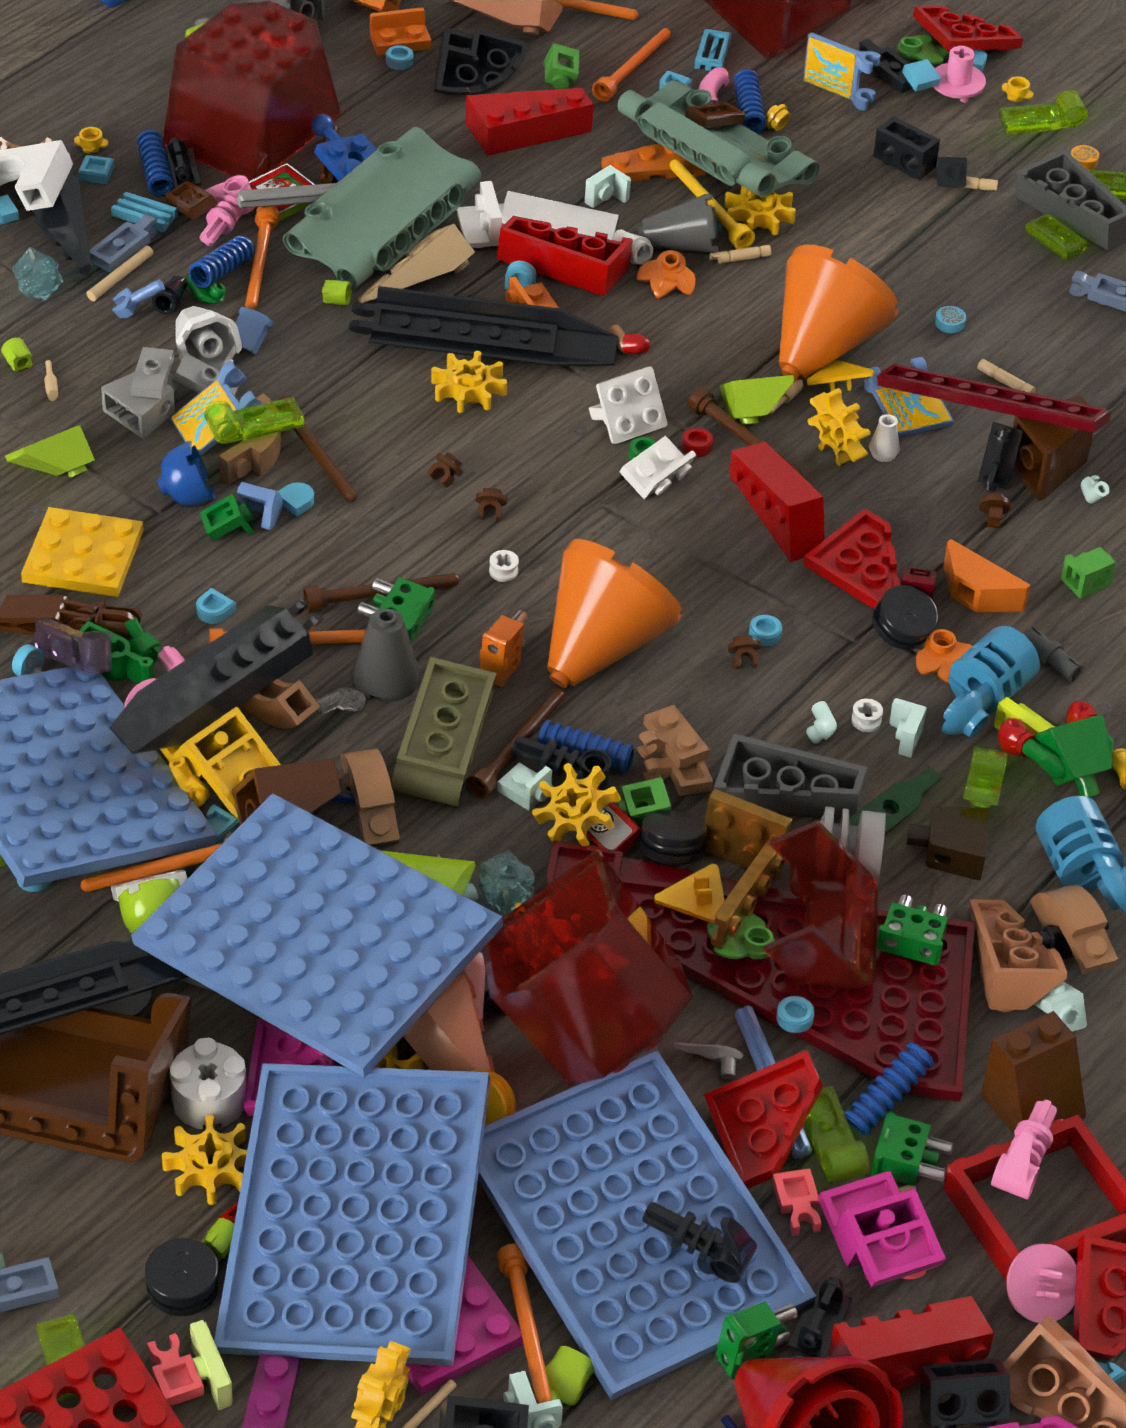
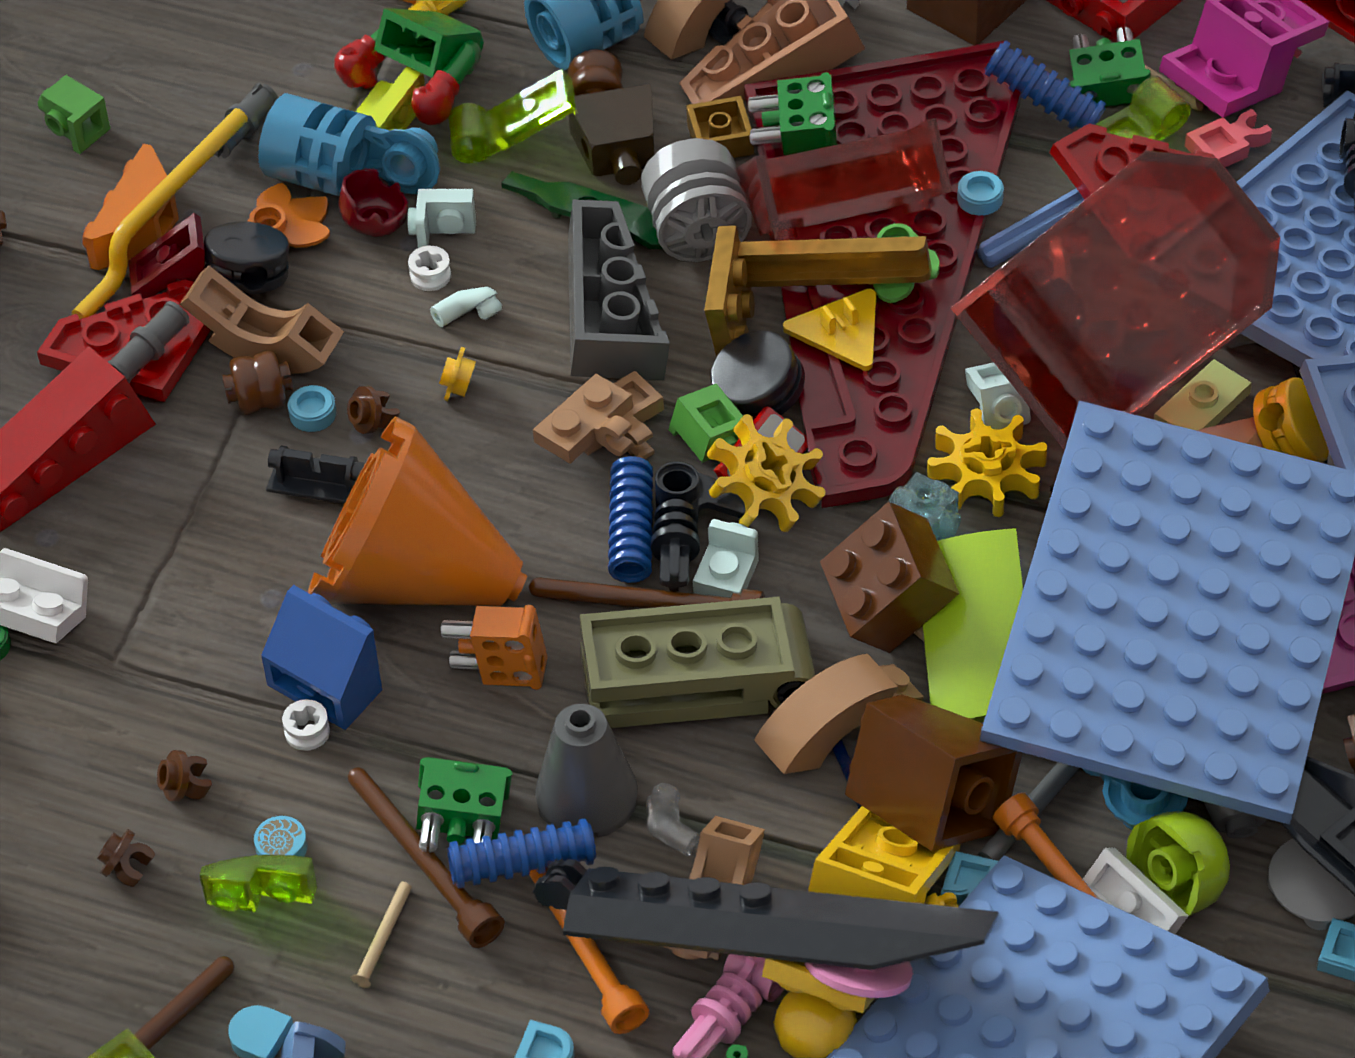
camera: 105 degrees left, 5 degrees up
(334, 563) = (382, 935): none -> tan piece
(341, 615) = (520, 852): none -> blue piece
(394, 518) = (243, 880): none -> clear neon green slope
(423, 536) = (281, 837): none -> tile
(452, 833) = (889, 577): none -> reddish brown brick
(532, 574) = (322, 657): none -> blue slope
(536, 1078) = (1205, 398): none -> yellowish green plate
(702, 614) = (320, 478): none -> black hinge
(754, 697) = (457, 375): none -> yellow plate
(791, 601) = (257, 382): none -> reddish brown piece
(839, 547) = (149, 341): none -> dark grey pin
(840, 610) = (247, 327): none -> medium nougat arch
(933, 688) = (371, 205): none -> dark red hair
(935, 890) = (723, 122): none -> pearl gold piece
(969, 576) = (149, 207): none -> yellow piece
(1012, 842) = (595, 72): none -> reddish brown piece

